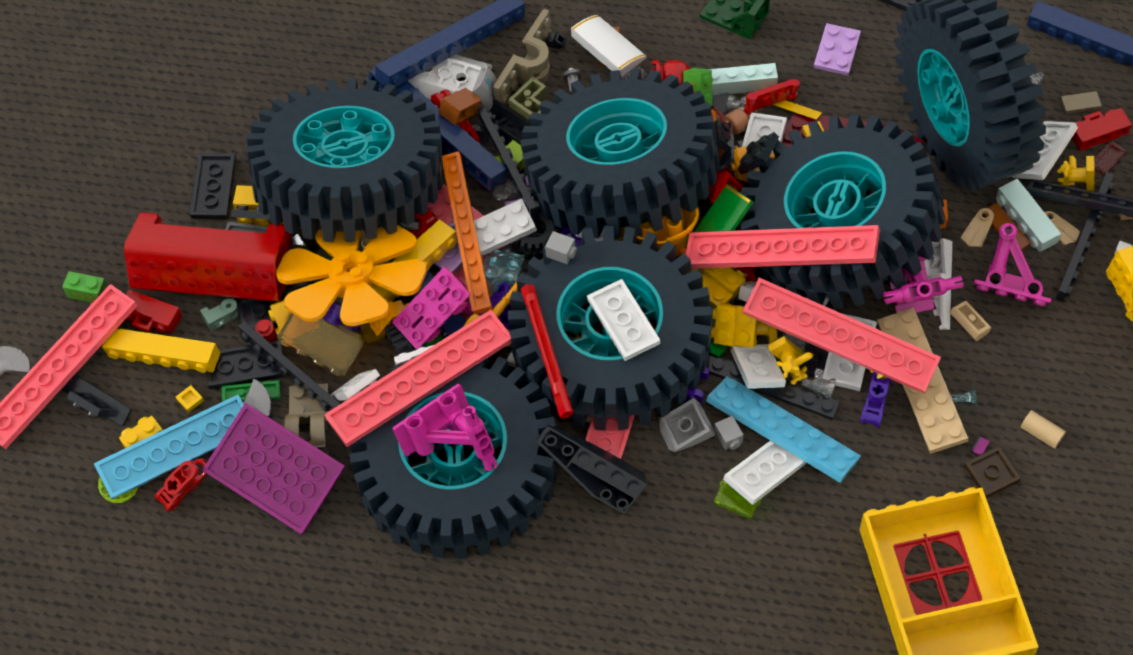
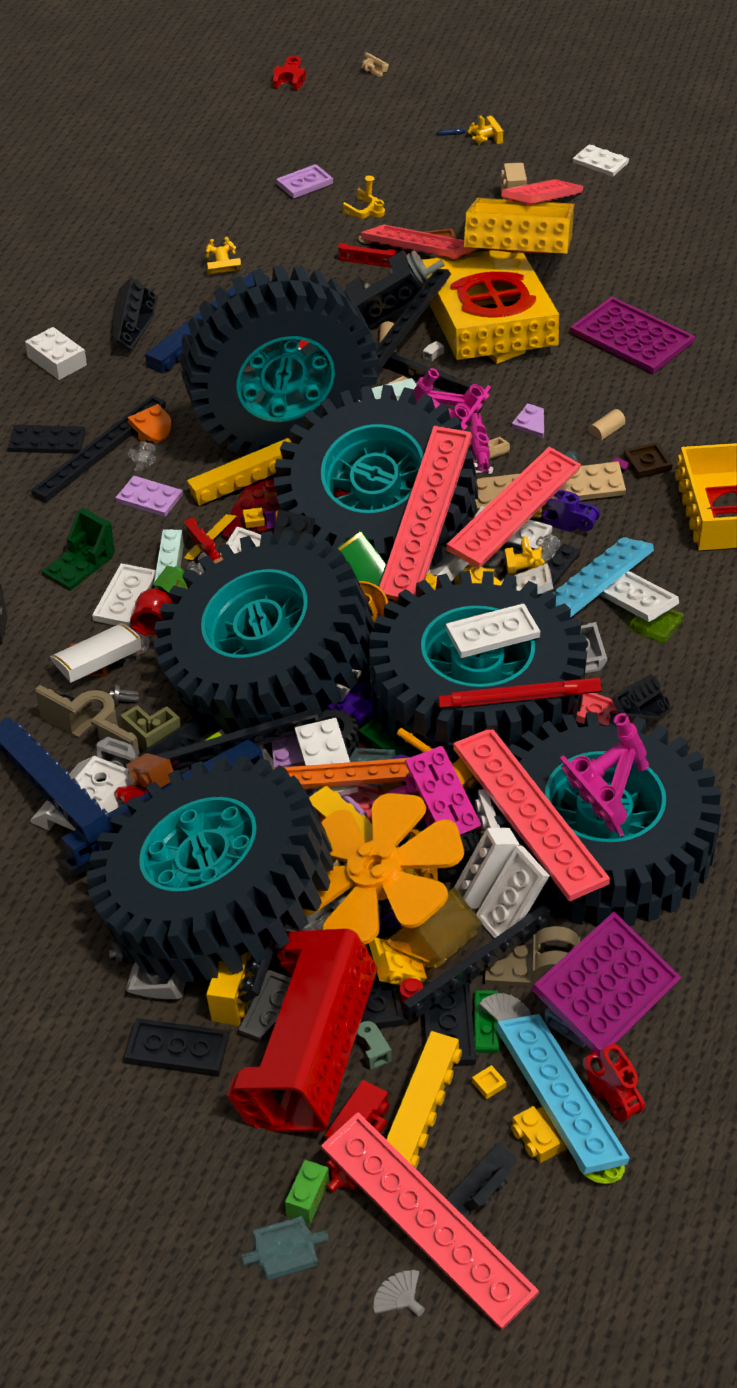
camera: 85 degrees left, 15 degrees down
(43, 282) = (285, 1248): none -> clear light blue plate
(378, 358) = (485, 865): none -> white brick
(560, 248) = (396, 668): light grey brick -> none
(697, 53) = (122, 593): none -> white plate
(729, 433) = (592, 614): light grey brick -> none
(868, 103) = (235, 474): none -> yellow brick
(886, 32) = (144, 456): none -> clear piece
(1034, 356) = (530, 420): none -> lavender wing

